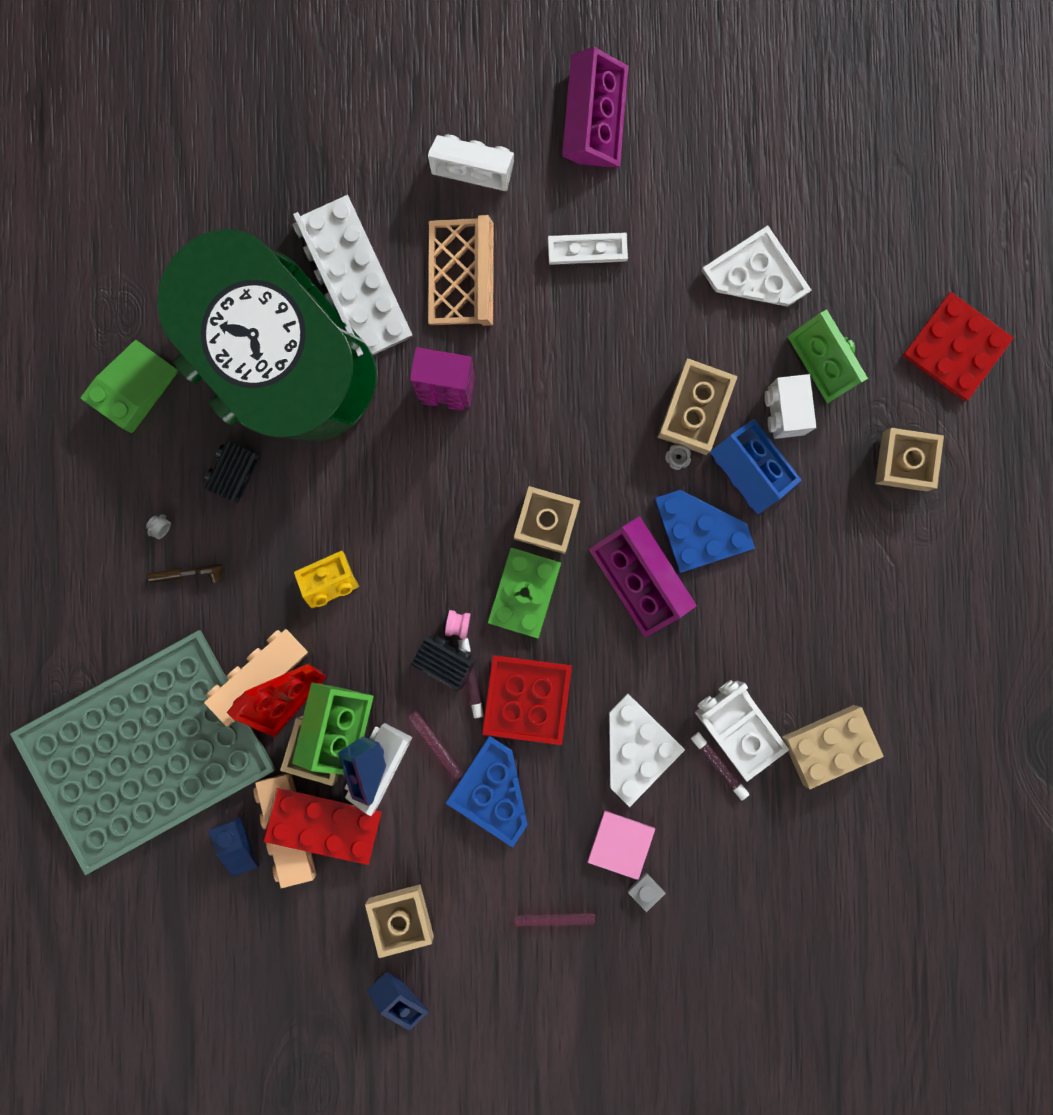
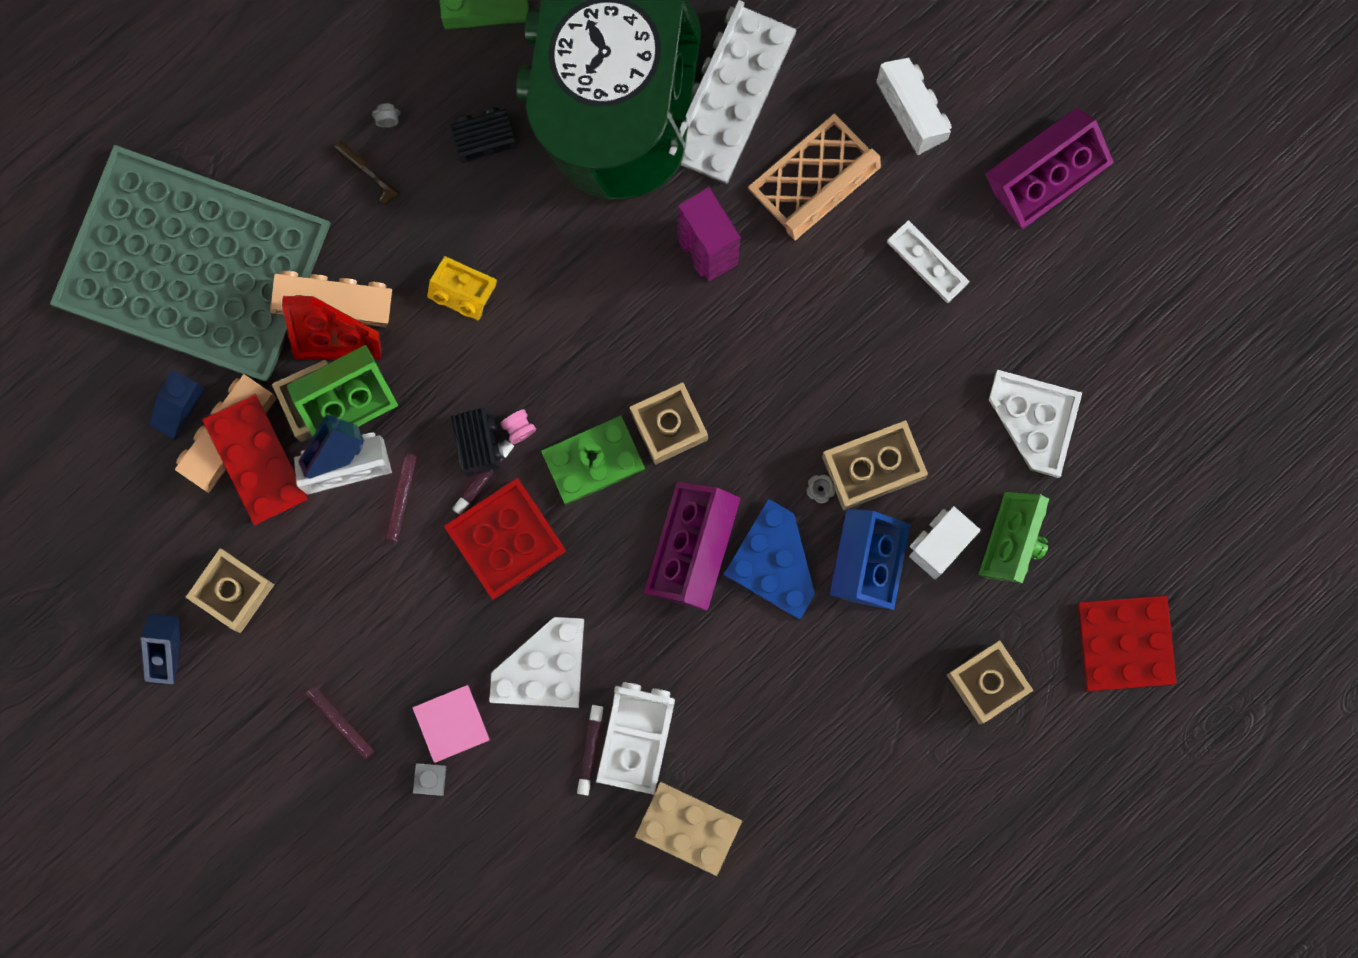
camera: 55 degrees right, 5 degrees down
(492, 793) = (401, 577): blue plate -> none

